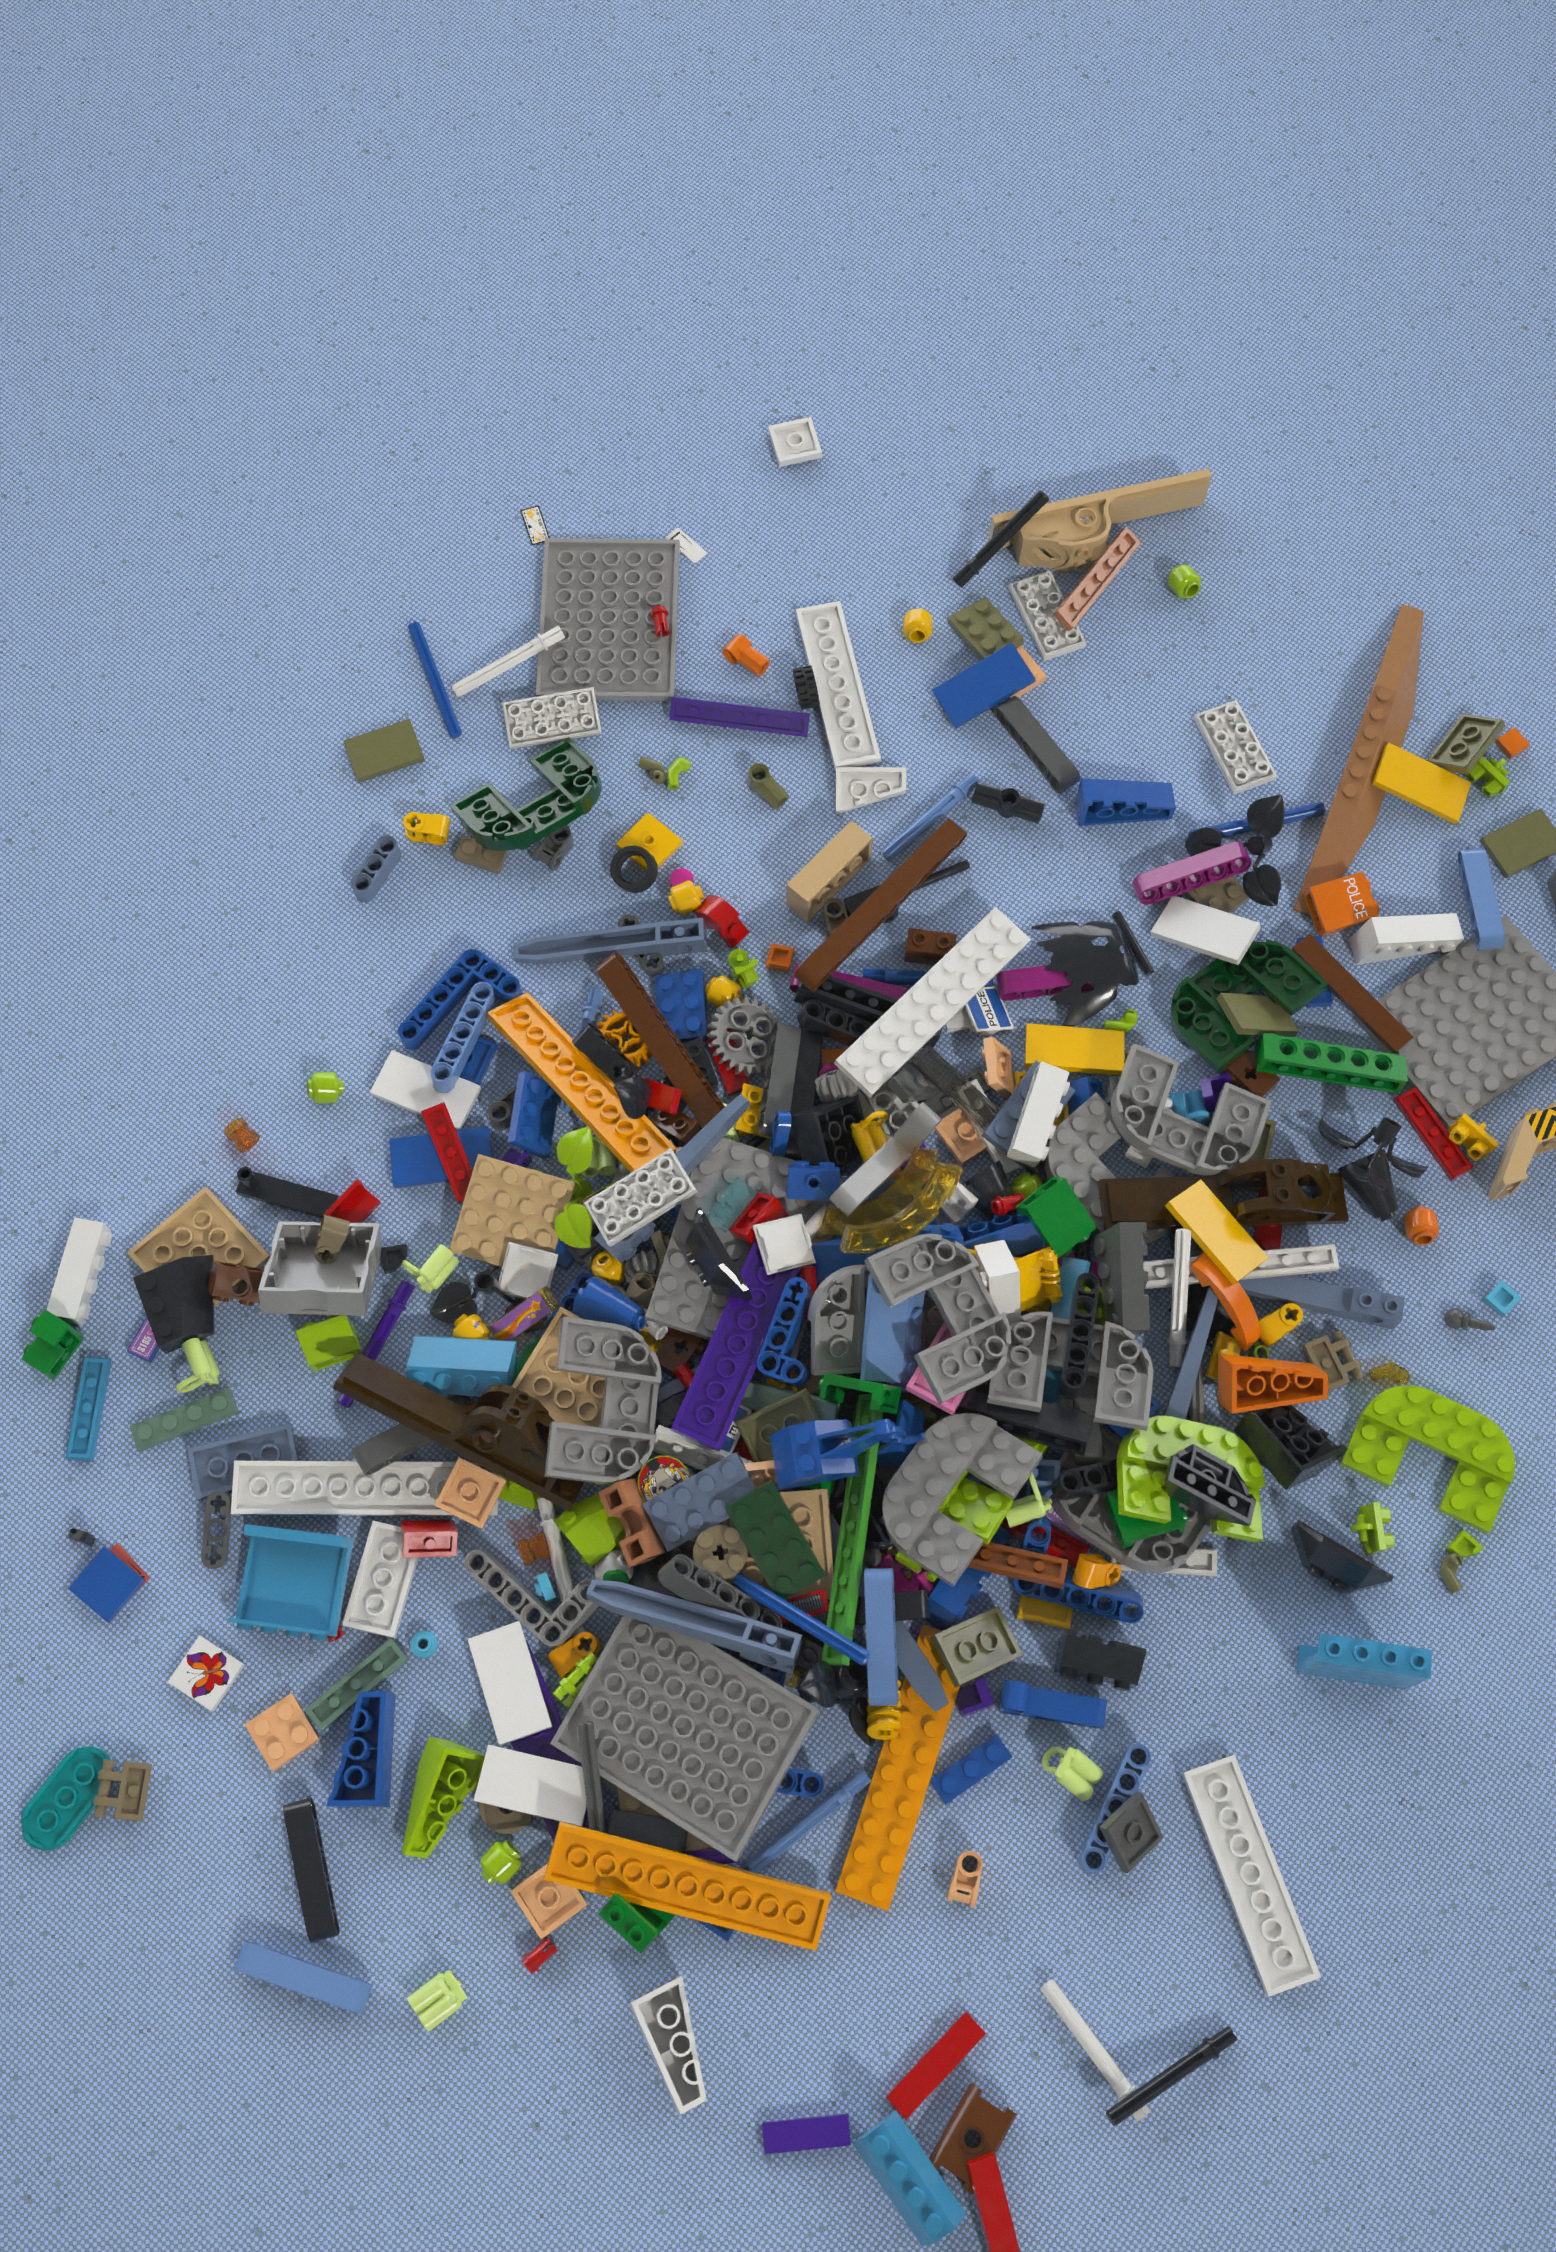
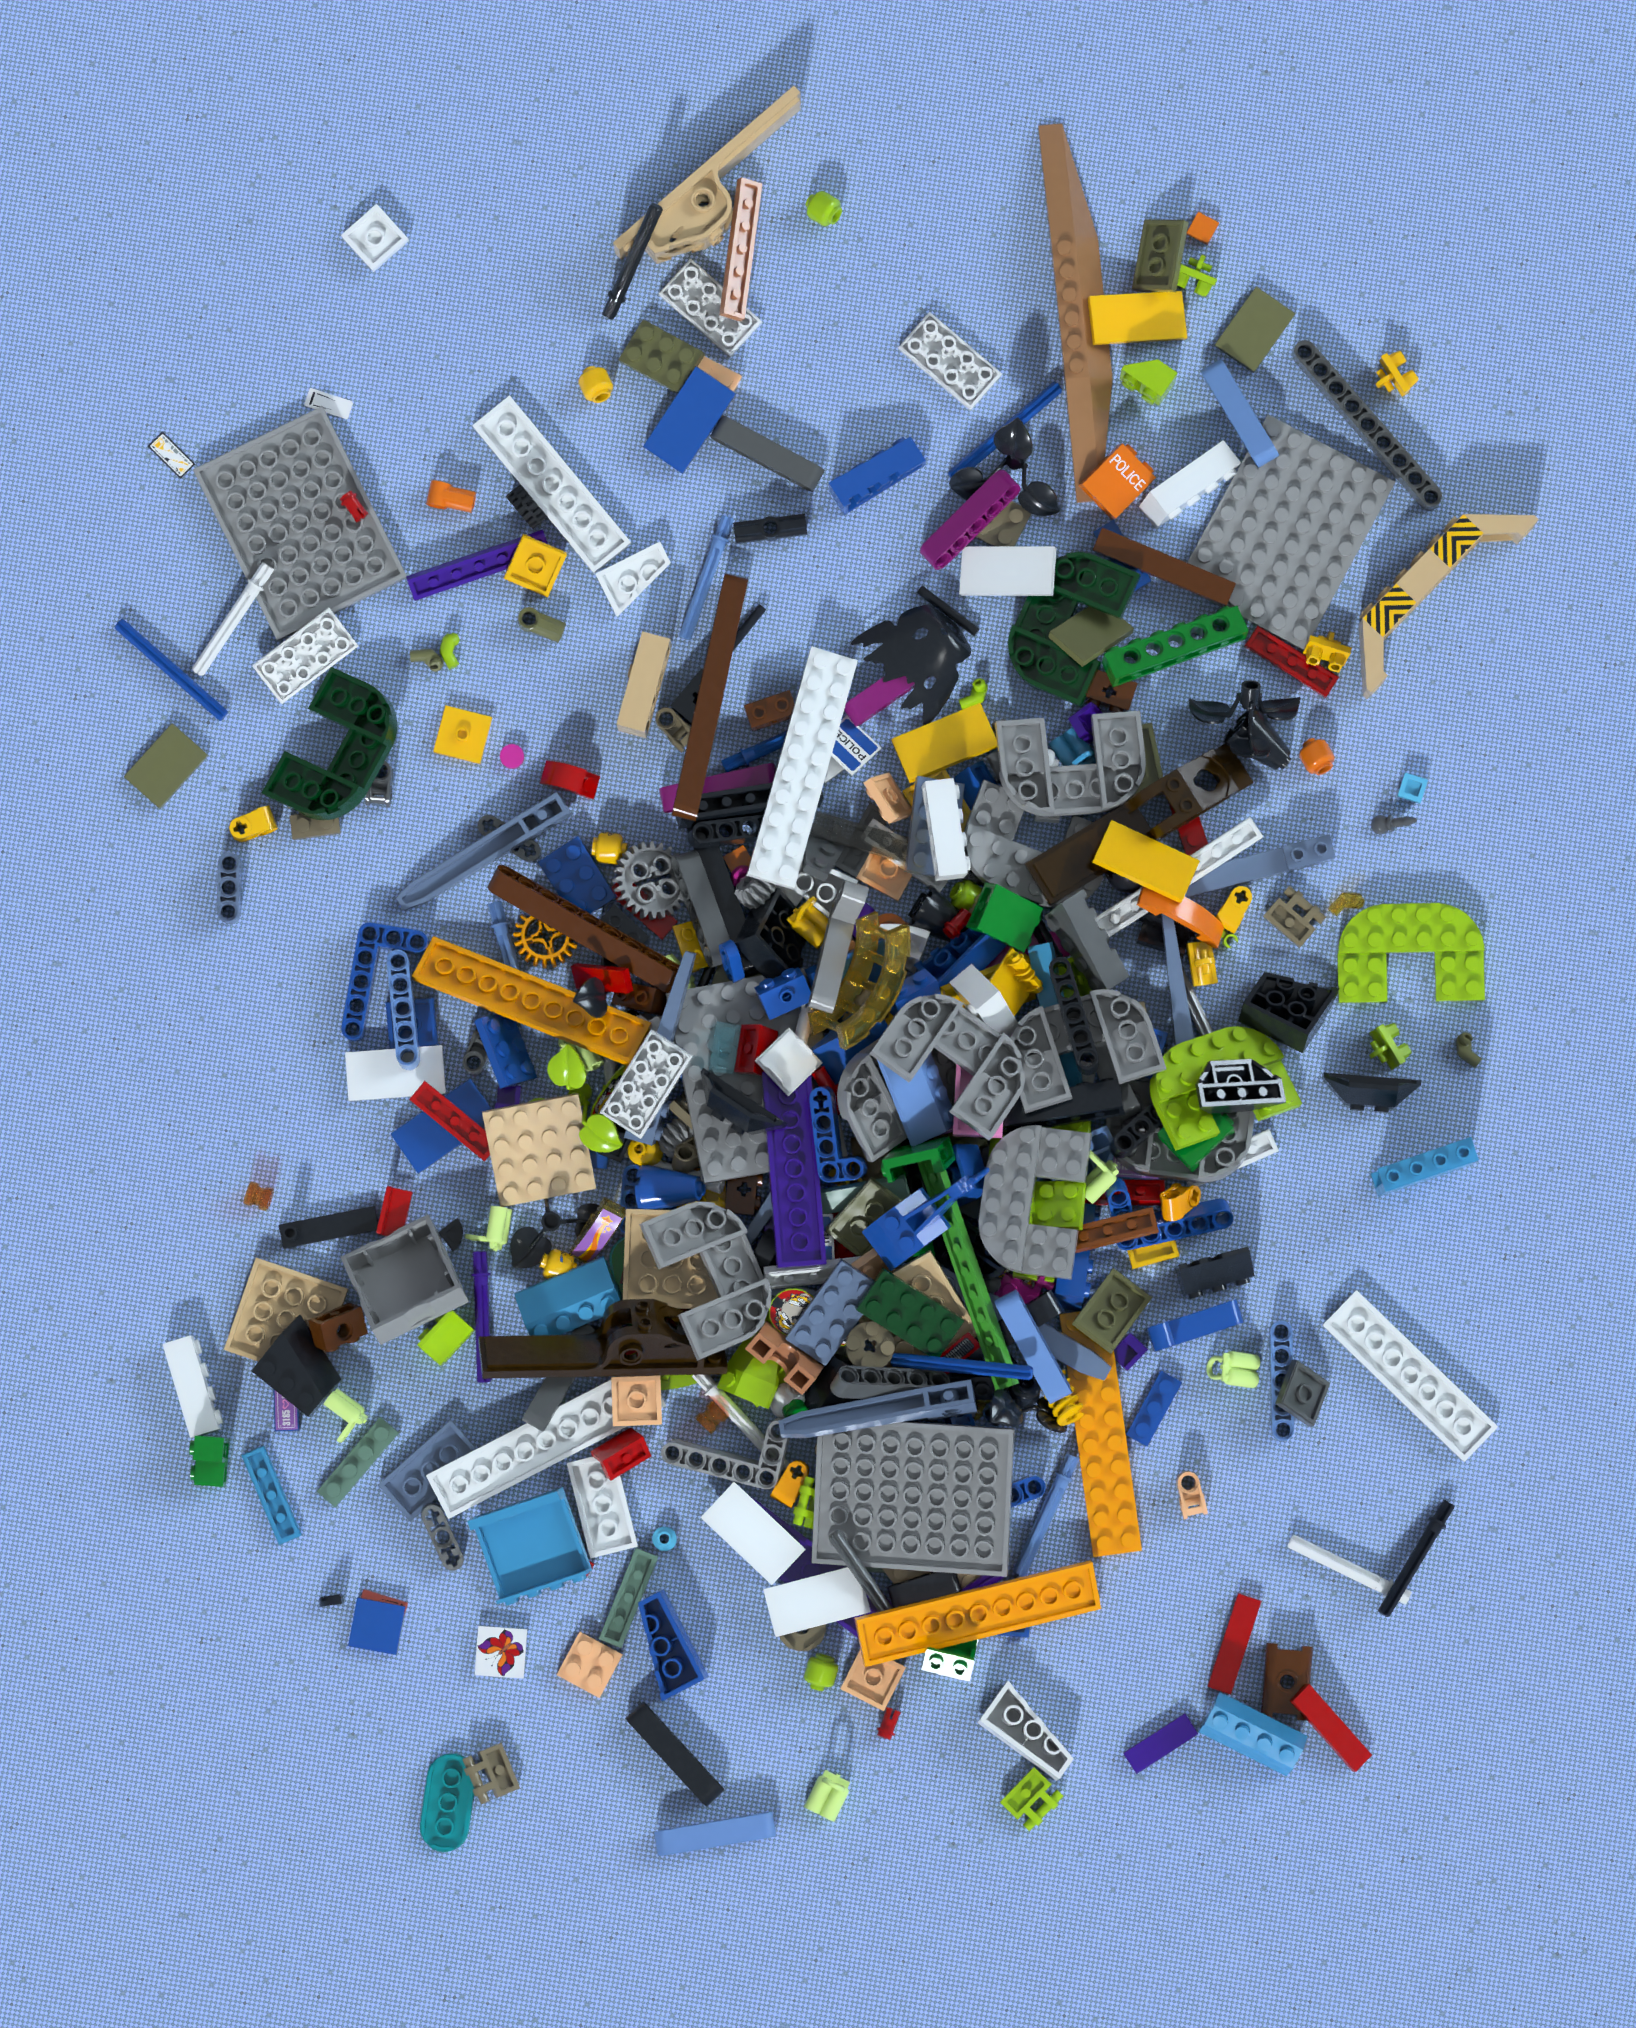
camera: 20 degrees left, 15 degrees up
(324, 1087) = (305, 1116): lime head -> none
(330, 1238) = (396, 1249): dark tan piece -> none
(441, 1784) = (740, 1635): lime wedge -> none
(526, 1270) = (577, 1191): white piece -> none
(545, 1589) = (738, 1444): medium azure plate -> none
(604, 1053) = (539, 964): black piece -> none
(618, 860) = (460, 788): black tyre -> none
(640, 2111) = (1026, 1793): none -> lime plate
(684, 1375) = (763, 1213): red pin -> none
(685, 897) = (527, 774): yellow head -> none
(742, 968) = (615, 818): lime hips -> none
(780, 958) = (640, 786): orange tile -> none
(787, 737) = (535, 565): none -> yellow plate
(1179, 1297) = (1155, 966): white axle -> none
(1267, 1383) = (1248, 969): orange wedge -> none
(1410, 833) = (1150, 379): none -> lime slope
(1464, 1545) = (1468, 1021): lime tile -> none

